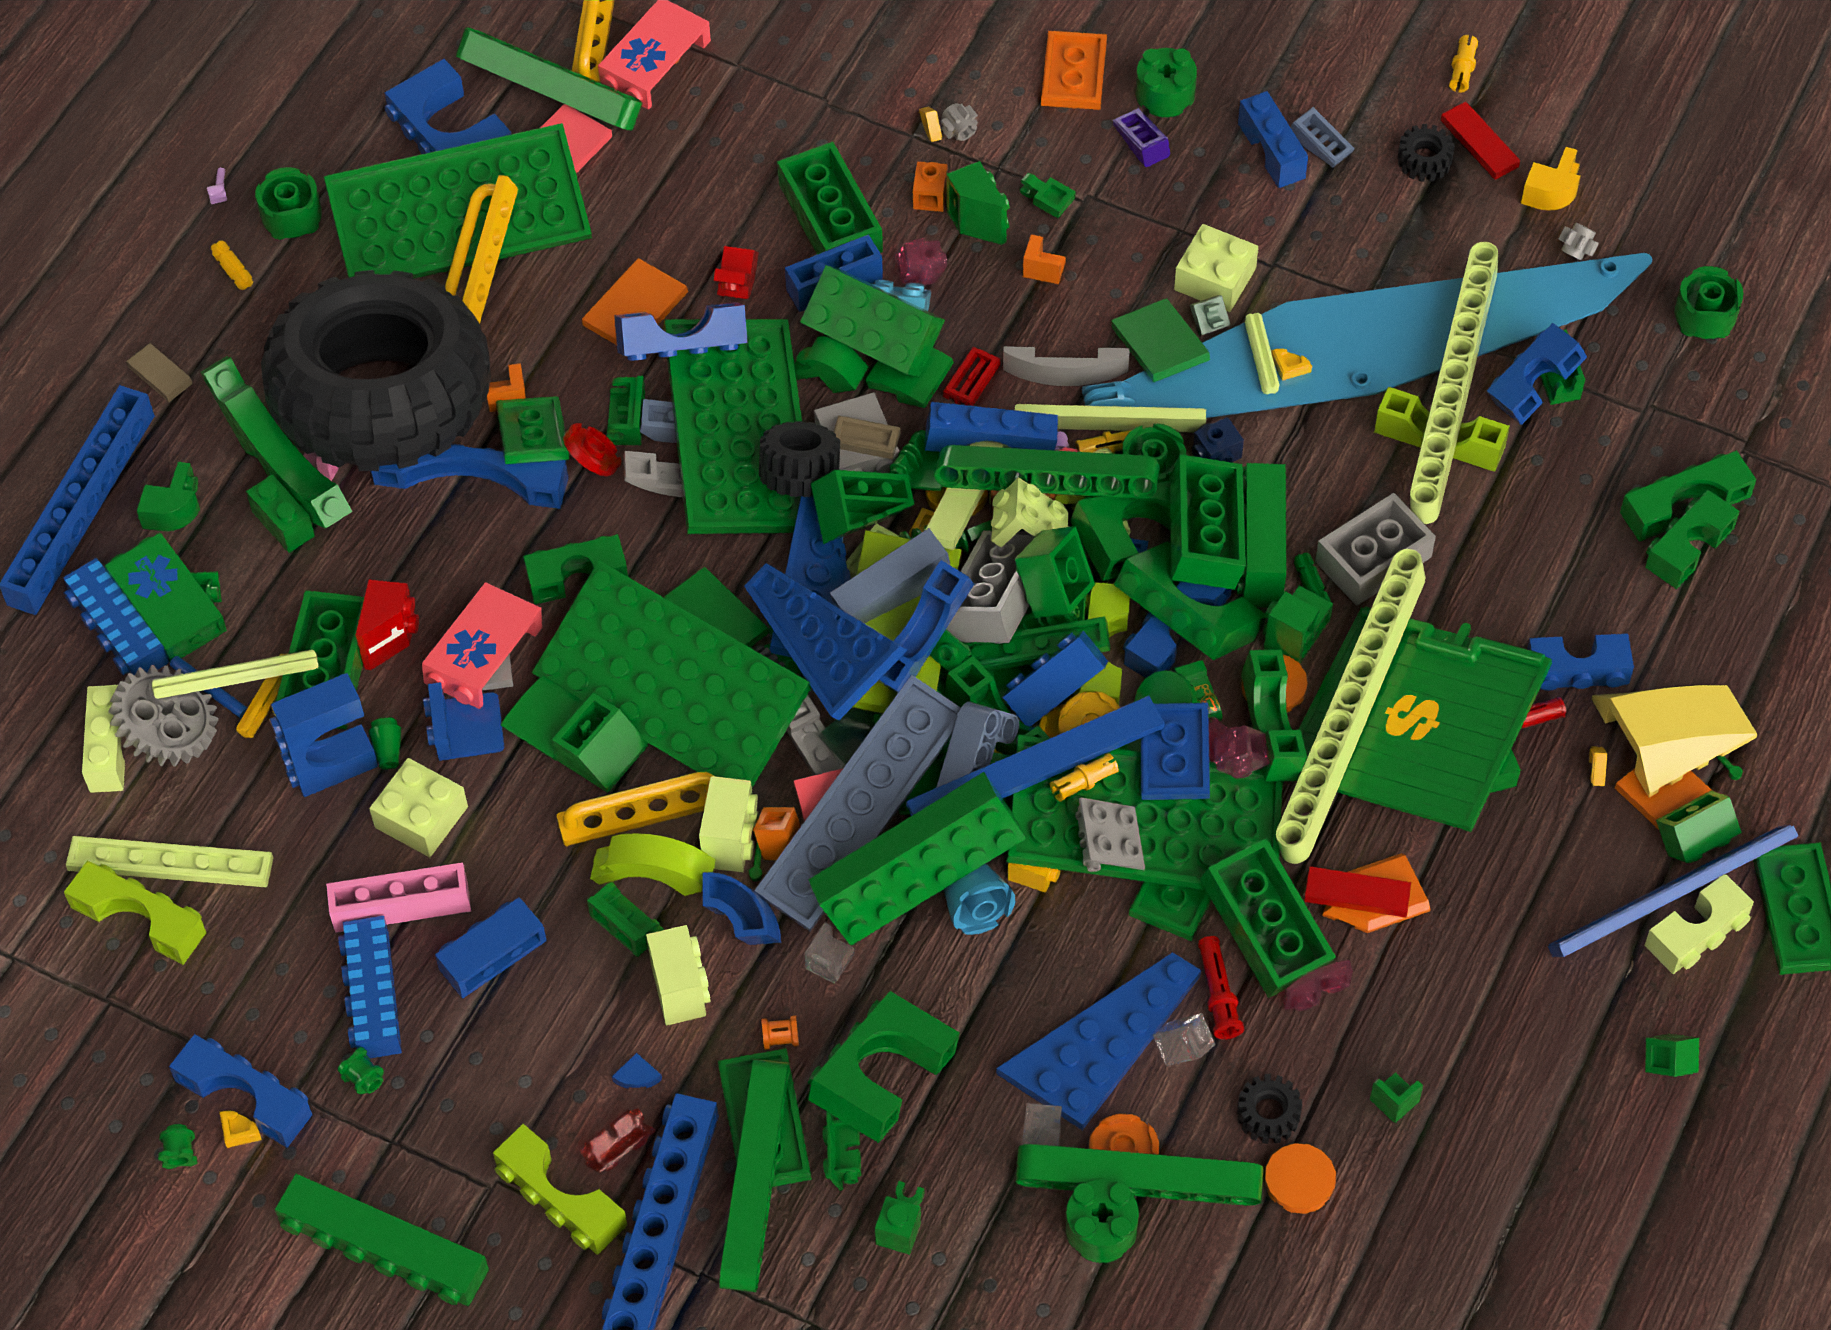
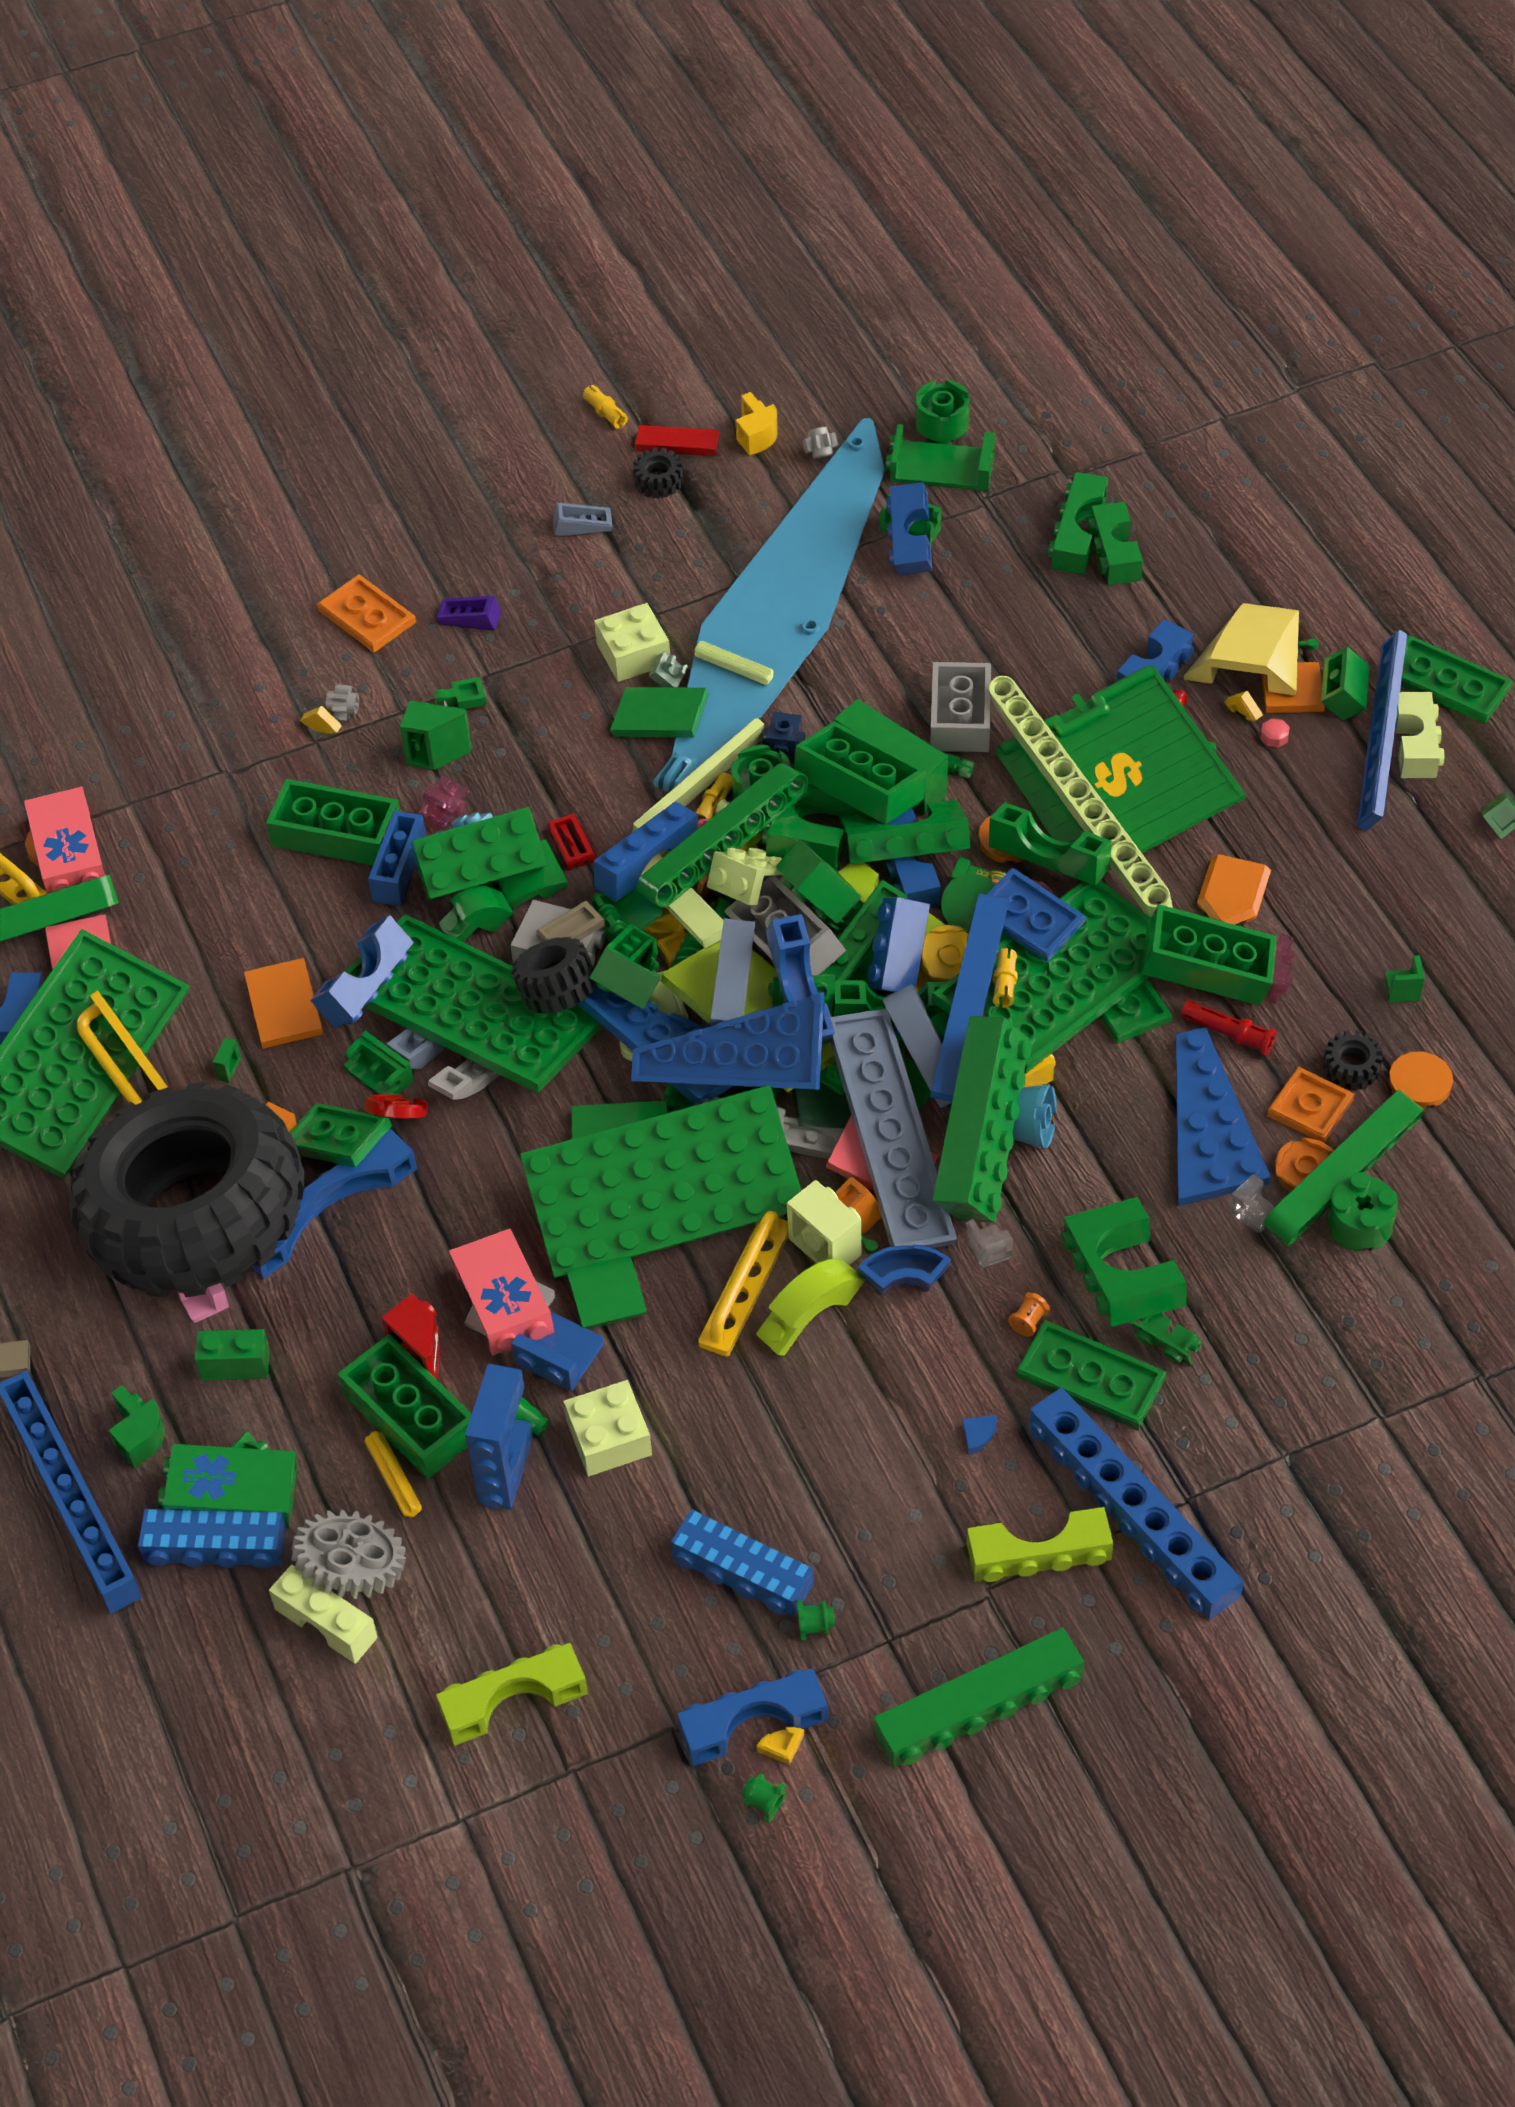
camera: 50 degrees left, 5 degrees down
(172, 861) = (481, 1641): yellowish green tile -> none
(218, 694) = (362, 1507): blue bar -> none
(234, 674) = (371, 1470): yellowish green axle -> none
(267, 442) = (145, 1317): green arch -> none
(400, 896) = (680, 1490): bright pink brick -> none
(490, 947) = (779, 1458): blue brick -> none
(544, 309) = (226, 1060): none -> green tile
(551, 568) = (497, 1167): green arch -> none
(598, 743) = (667, 1270): green slope -> none
(605, 1152) = (1034, 1482): clear red hinge -> none
(622, 918) = (837, 1356): green hinge -> none
(678, 974) = (927, 1343): yellowish green brick -> none
(736, 272) = (328, 917): red brick -> none
(754, 1176) = (1144, 1403): green beam -> none
(899, 1220) = (1258, 1337): green brick -> none
(930, 186) = (379, 756): orange brick -> none
(1042, 265) = (519, 738): orange panel -> none
(1065, 371) = (600, 800): light grey slope -> none
(1109, 835) = (1059, 989): light grey hinge -> none
(1166, 81) = (442, 566): green brick -> none
(1184, 1040) = (1254, 1073): clear panel -> none
(1194, 1108) = (1310, 1104): none -> orange tile
(1240, 751) = (1075, 873): clear pink brick -> none
(1264, 123) = (578, 542): blue arch -> none
(1290, 364) = (760, 653): yellow tile -> none
(1296, 622) = (978, 787): green brick -> none
(1357, 892) = (1230, 893): red tile -> none
(1405, 419) = (929, 598): lime arch -> none
(1454, 382) = (872, 573): yellowish green beam -> none
(1594, 809) = (1275, 732): none -> coral tile
(1655, 344) = (941, 463): none -> green panel

